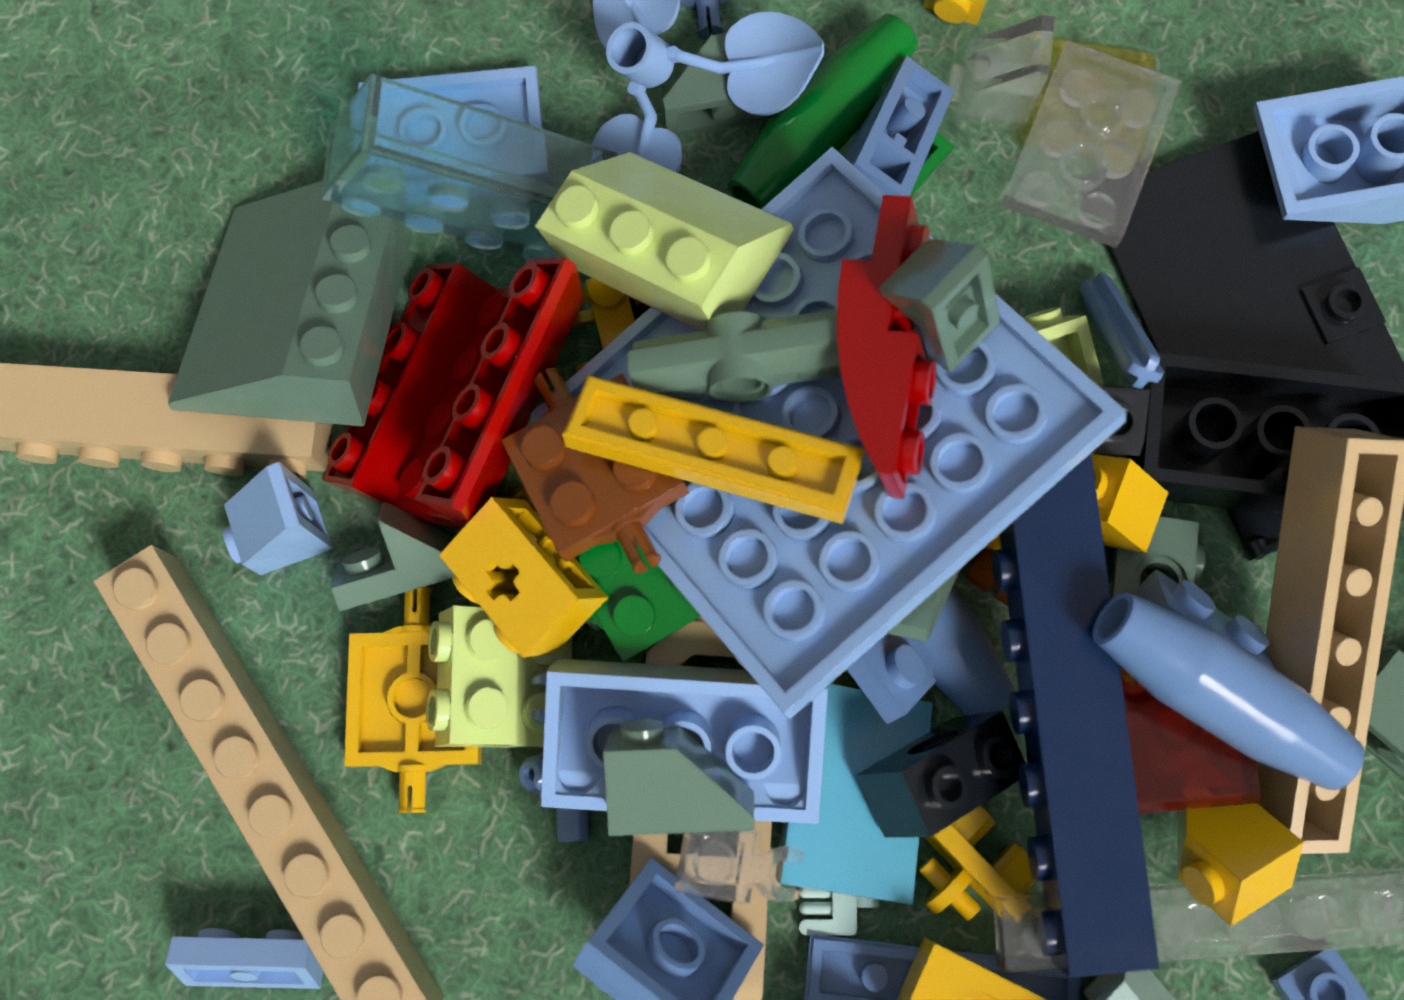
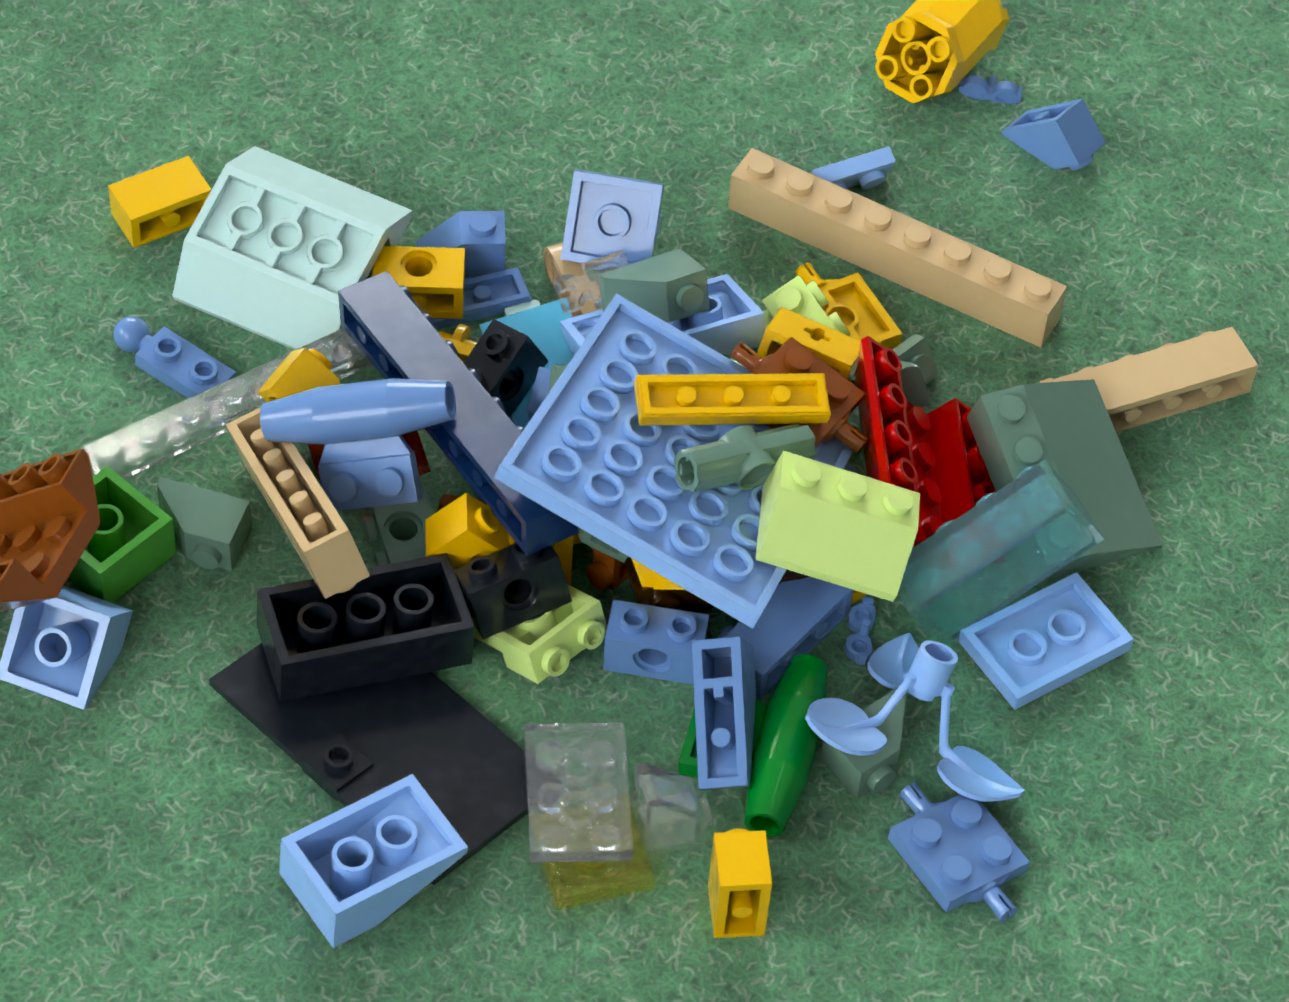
camera: 150 degrees right, 25 degrees down
(274, 522) = (983, 364): light blue slope -> none
(882, 354) = (661, 458): red slope -> none
(950, 297) = (643, 470): sand green slope -> none
(1121, 331) = (501, 657): medium blue axle -> none

